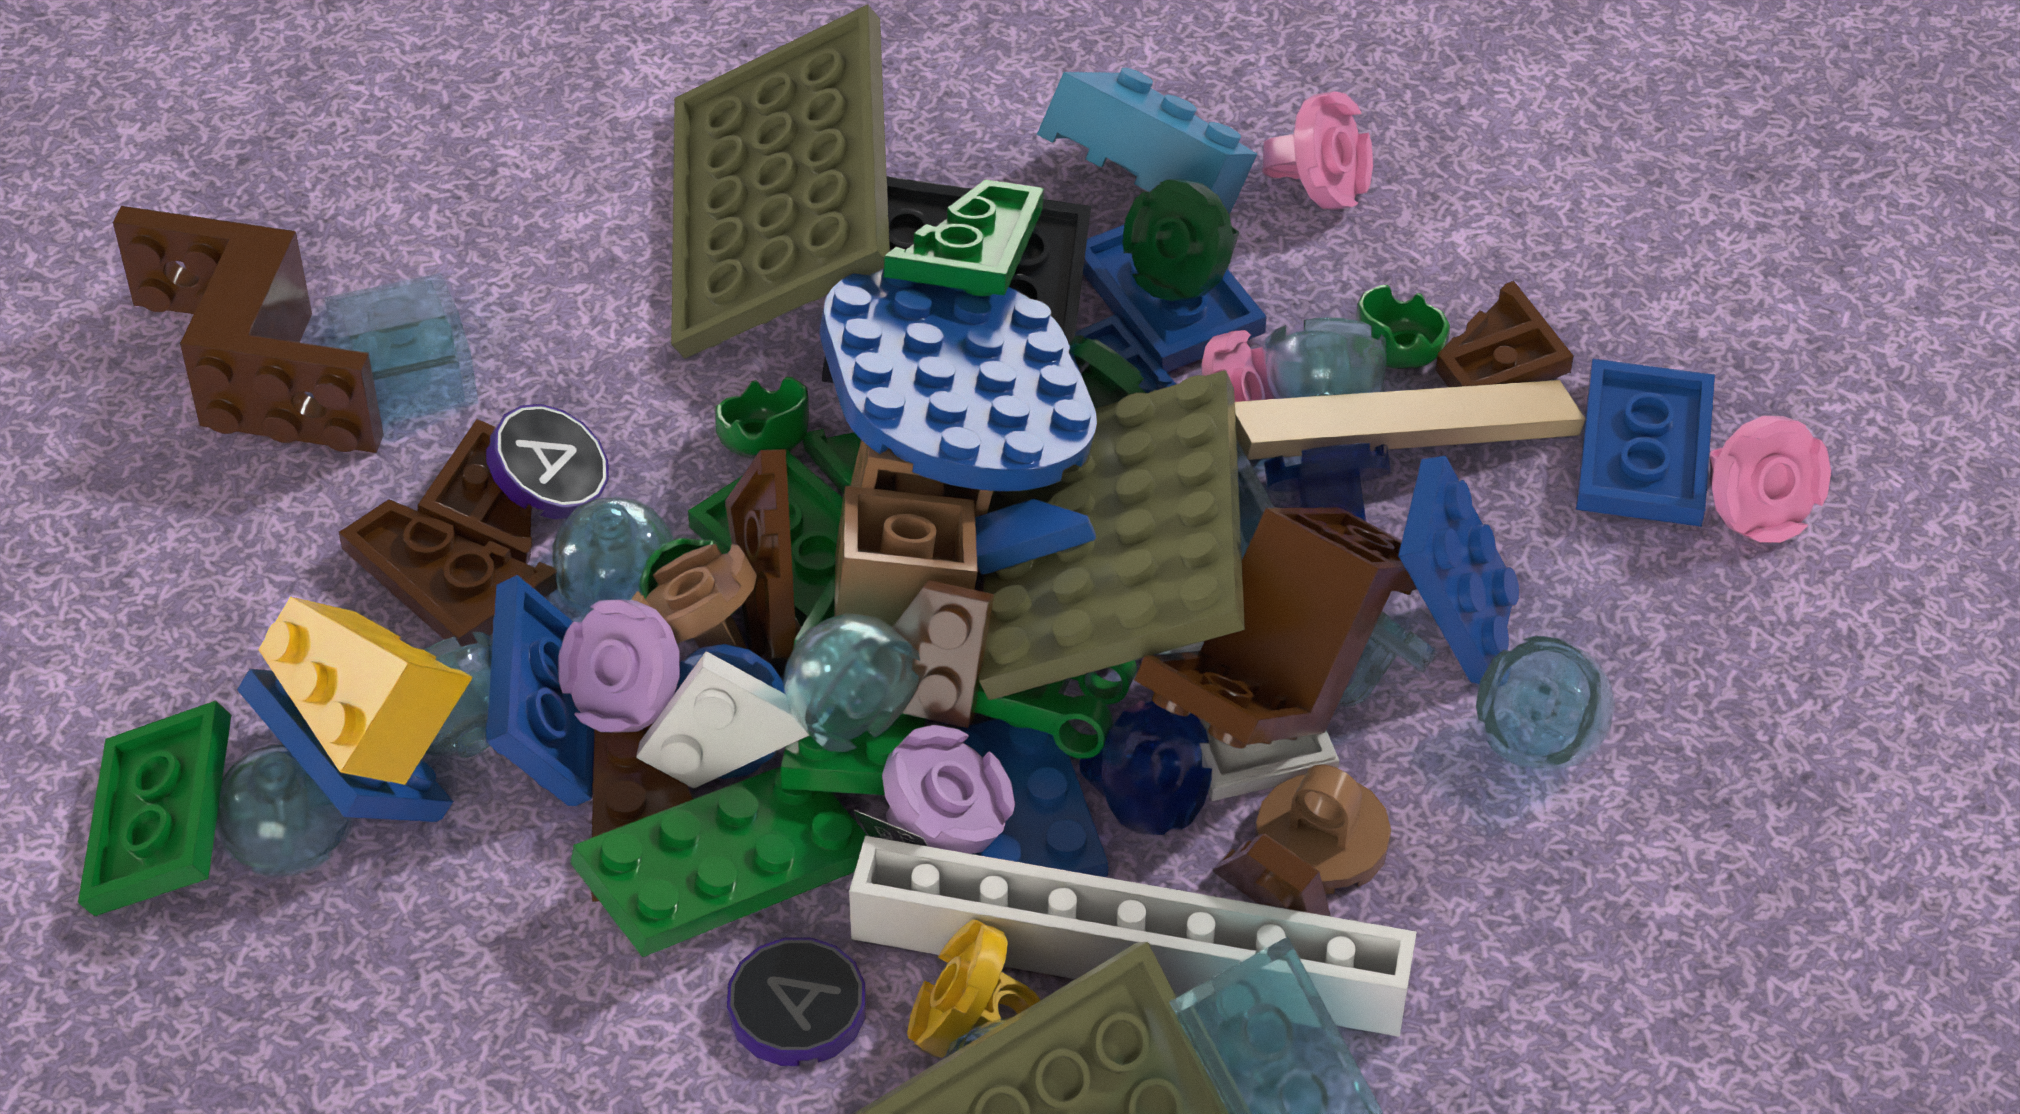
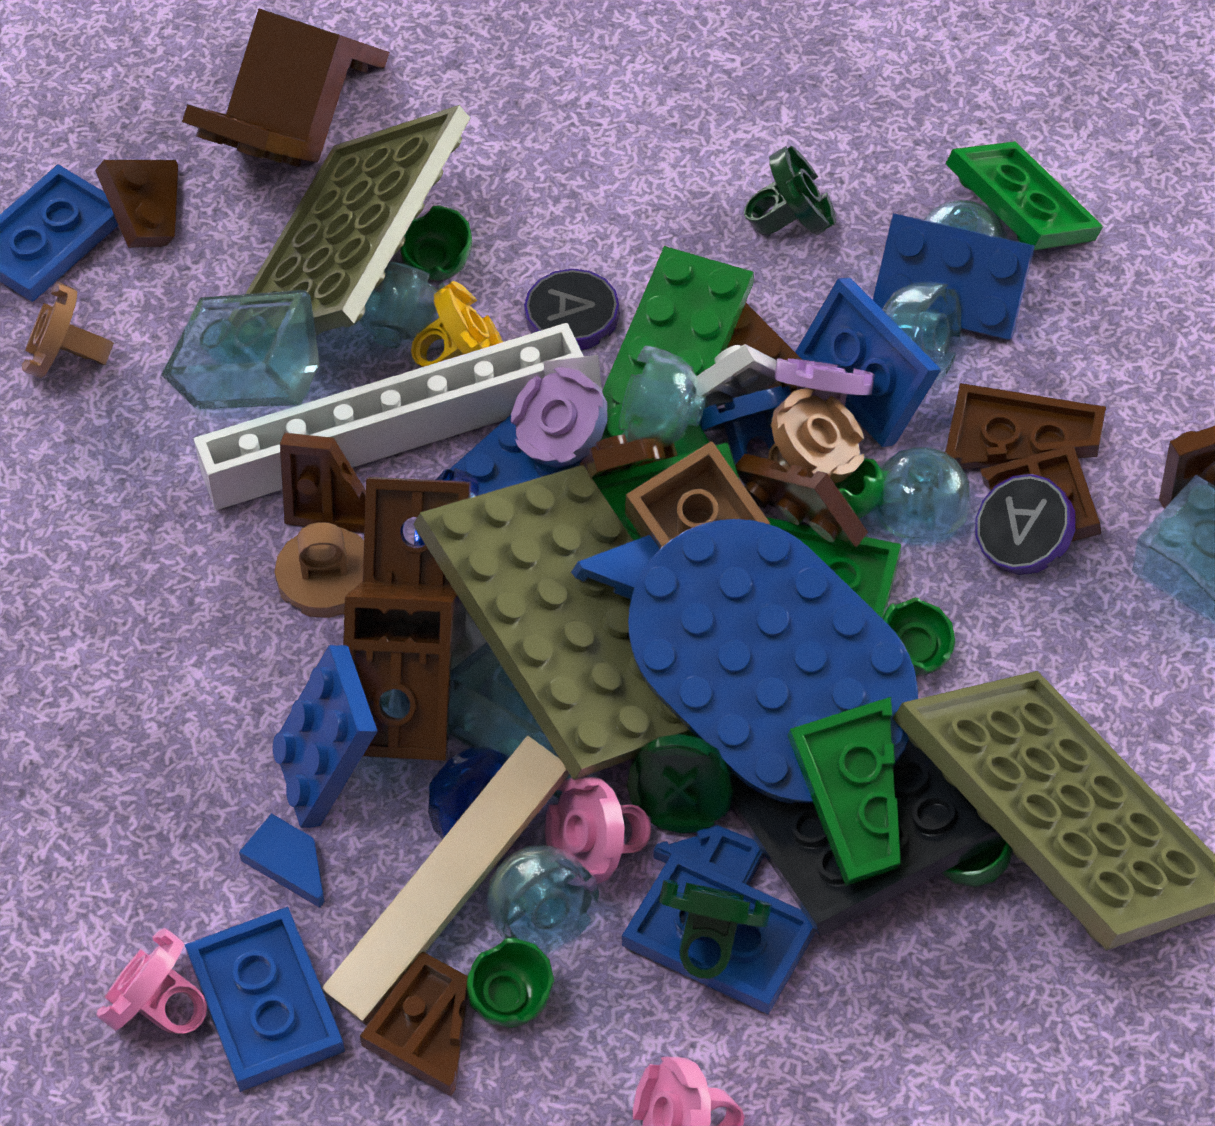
camera: 150 degrees right, 5 degrees up
(361, 688) = (955, 252): yellow wedge -> none
(413, 954) = (791, 195): none -> dark green tile
(1146, 132) = (830, 1037): dark azure wedge -> none
(1545, 704) = (212, 704): clear light blue cylinder -> none
(1549, 563) = (285, 857): none -> blue tile

